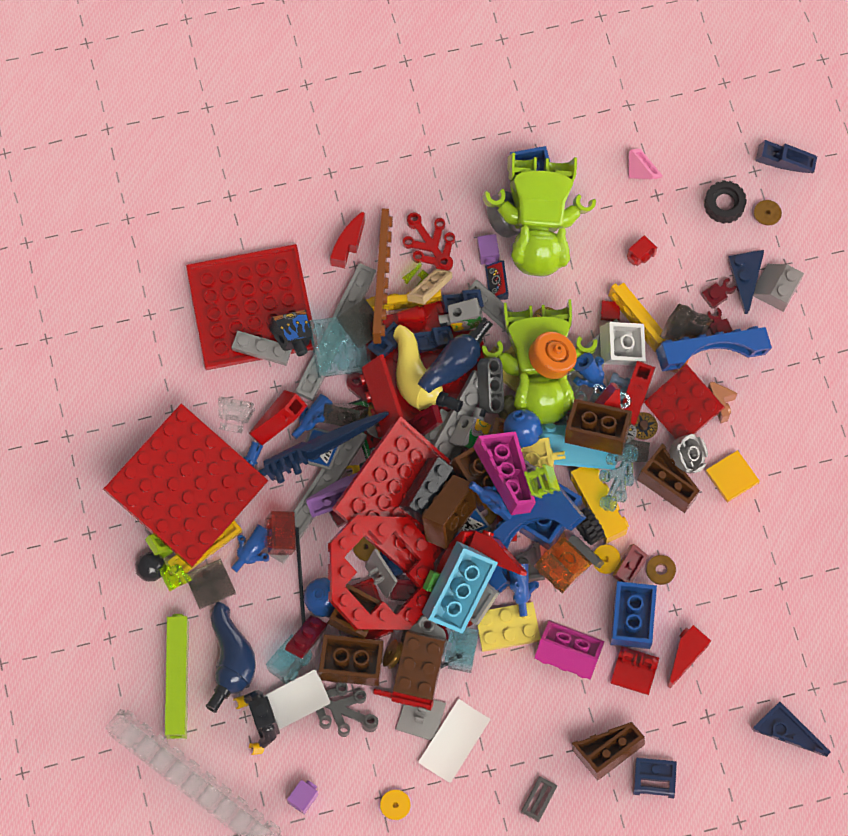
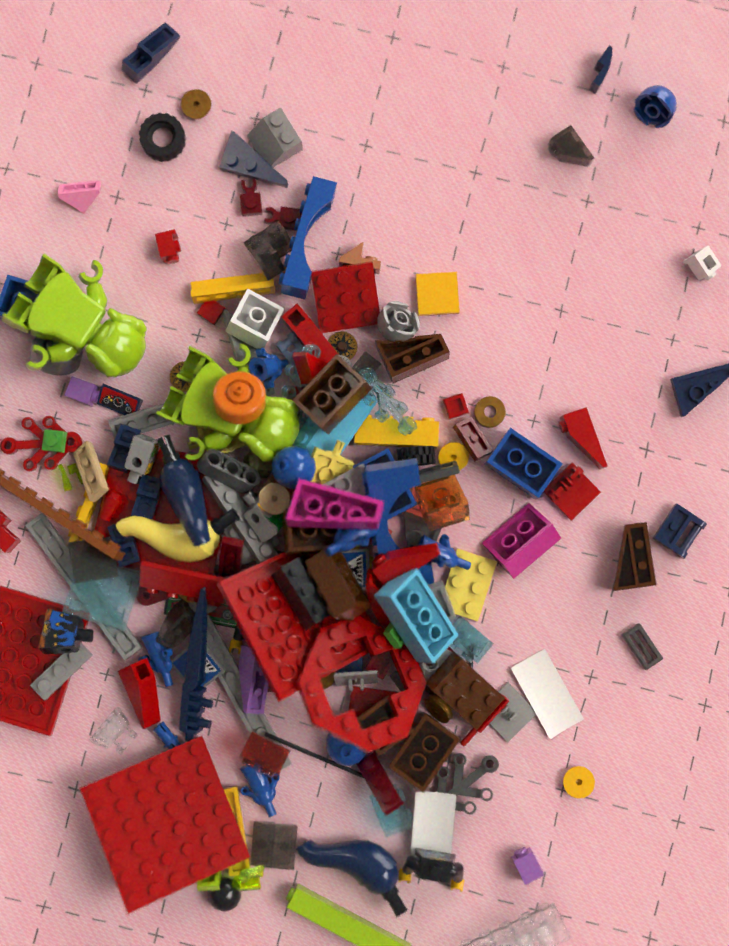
camera: 65 degrees left, 15 degrees up
(437, 249) = (54, 441): none -> bright green plate
(487, 426) = (274, 498): none -> tan piece
(547, 486) = (366, 477): lime piece -> none
(649, 539) = (455, 406): none -> red tile

